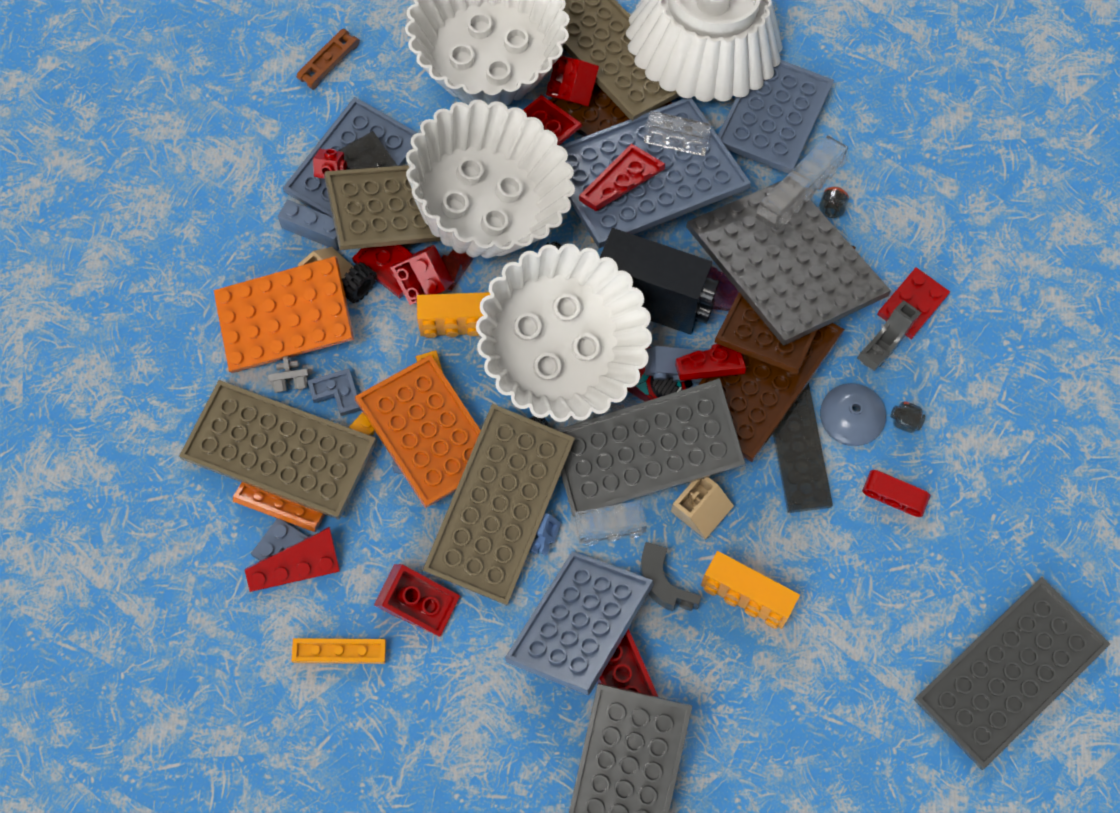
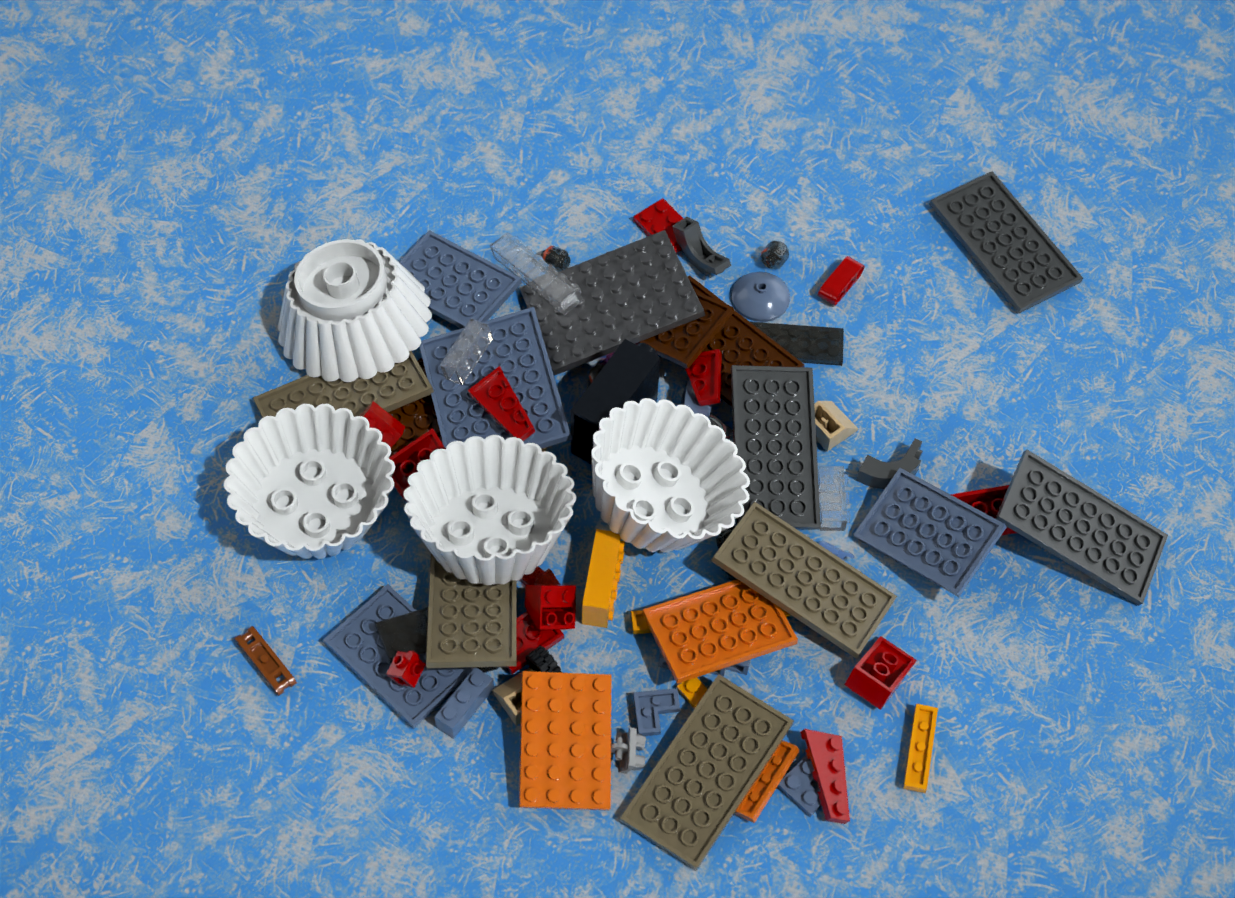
camera: 80 degrees left, 10 degrees down
(749, 590) = (915, 401): light orange brick -> none

